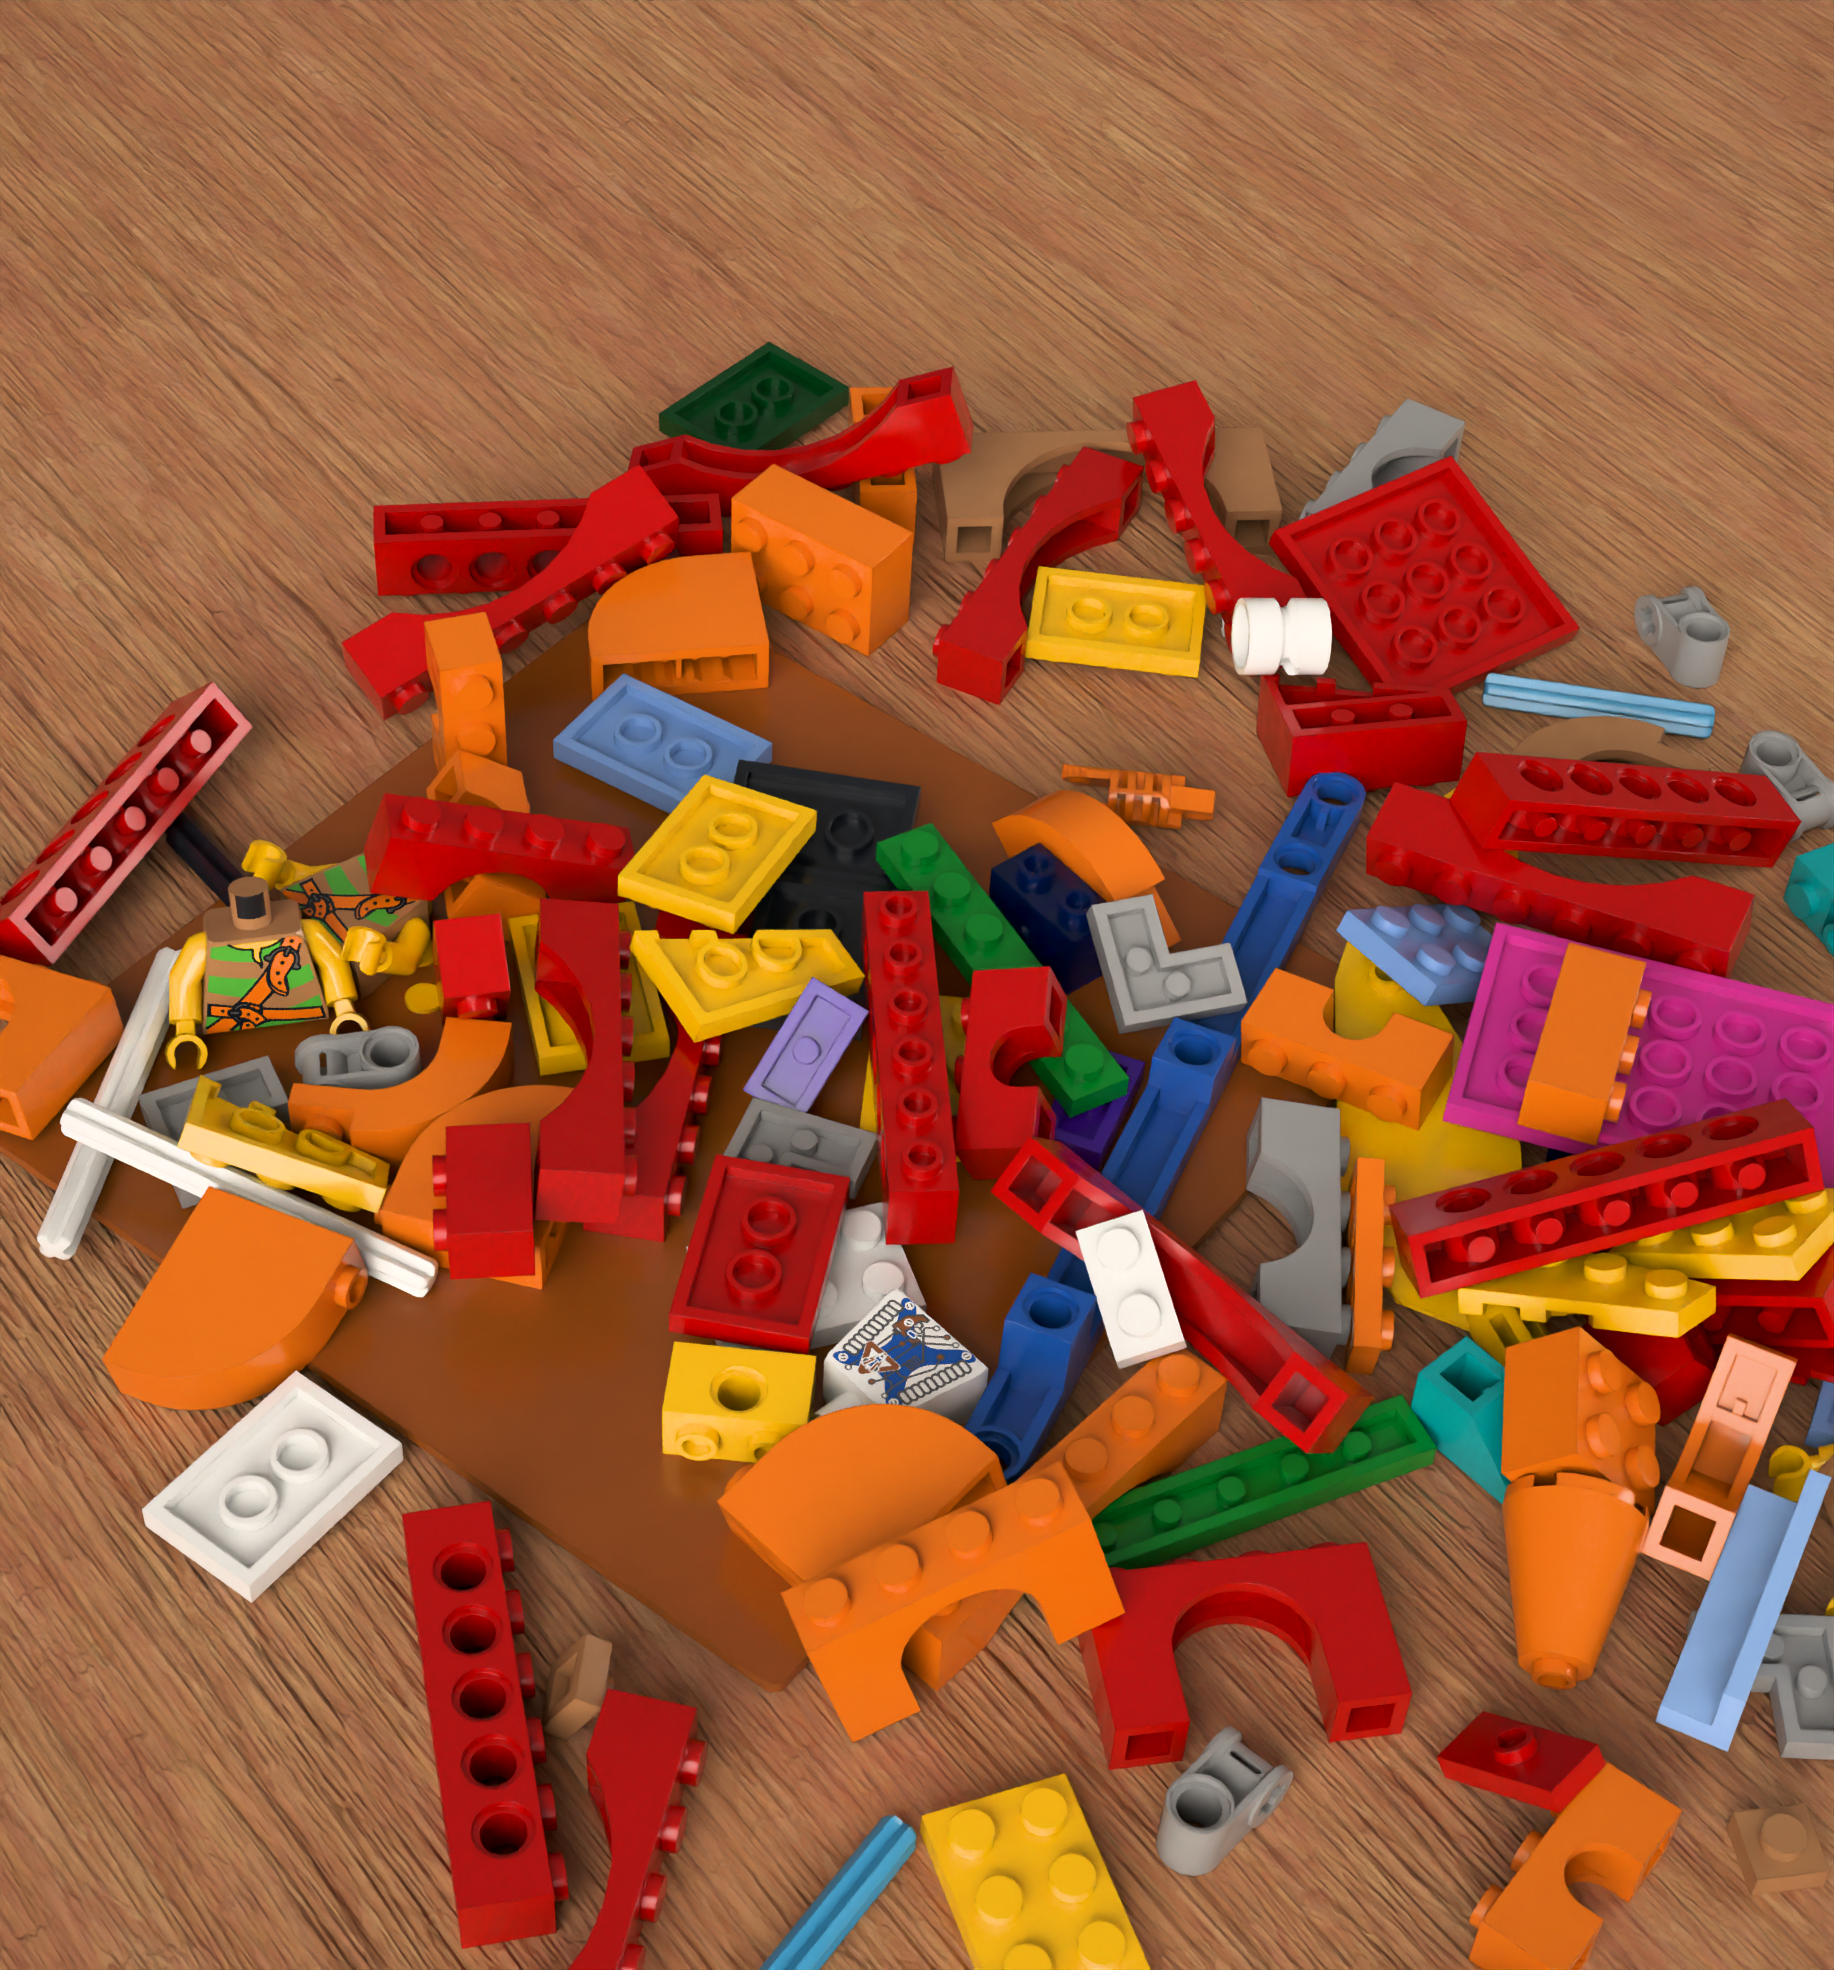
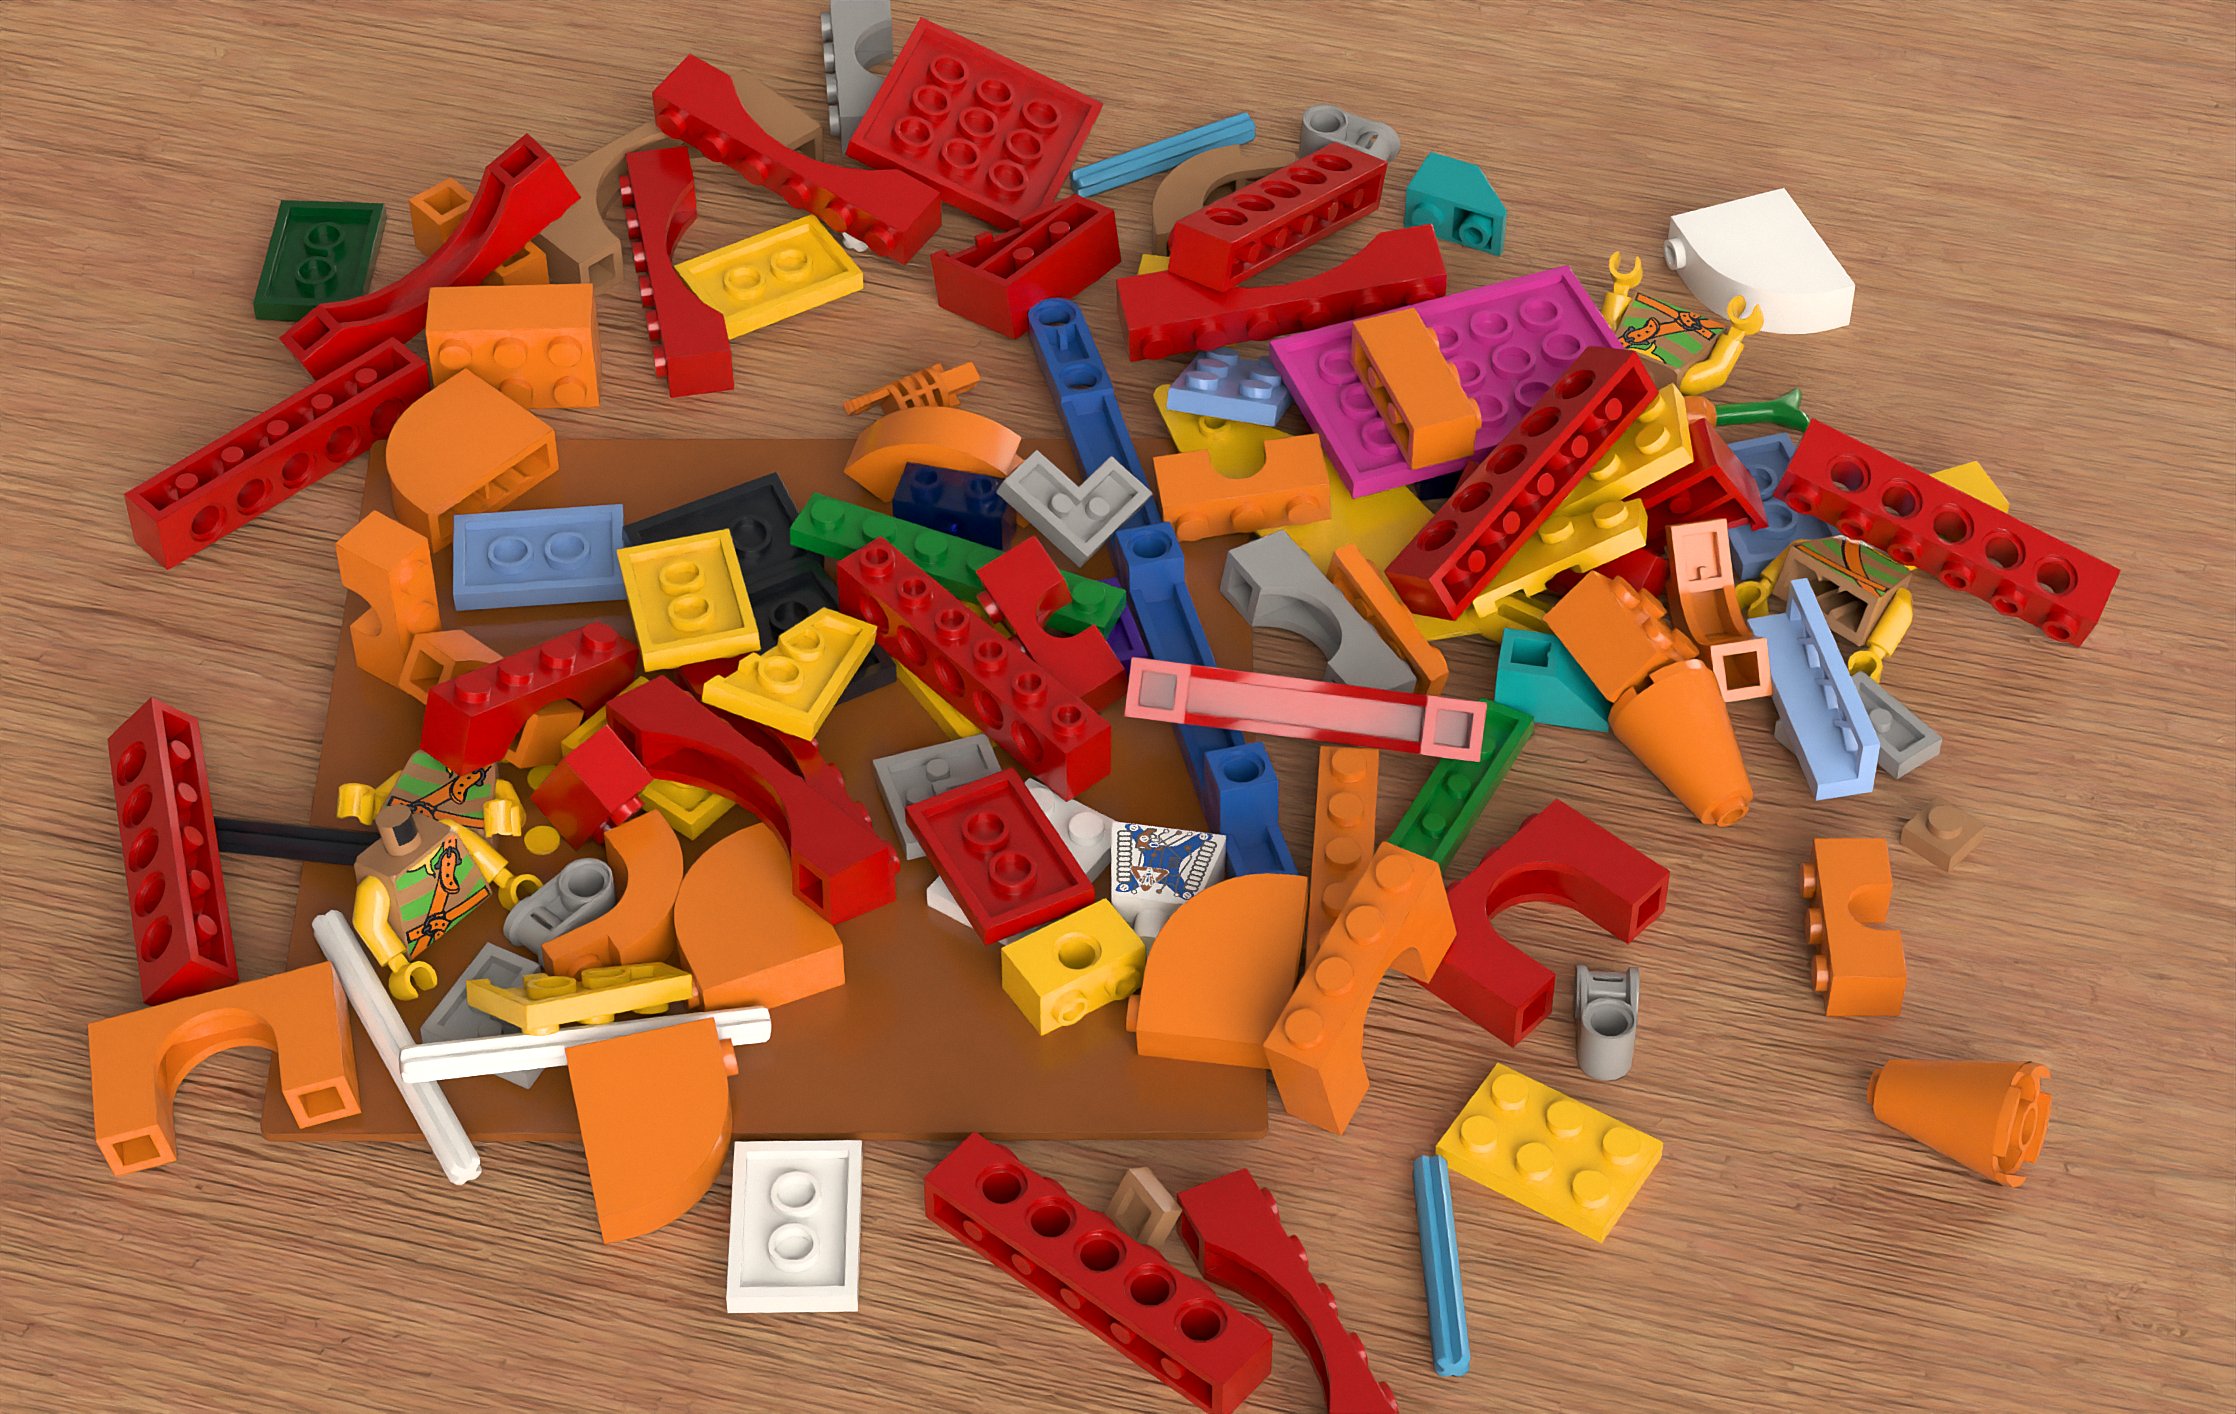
camera: 35 degrees left, 0 degrees up
(487, 1201) = (789, 930): red brick -> none
(619, 531) = (266, 591): red arch -> none
(807, 1048) = (884, 700): plate -> none
(1130, 1289) = (1268, 713): white plate -> none
(1278, 636) = (933, 217): white wheel -> none
(1521, 1761) = (1764, 873): red plate -> none
(1684, 635) = (1182, 69): light grey piece -> none

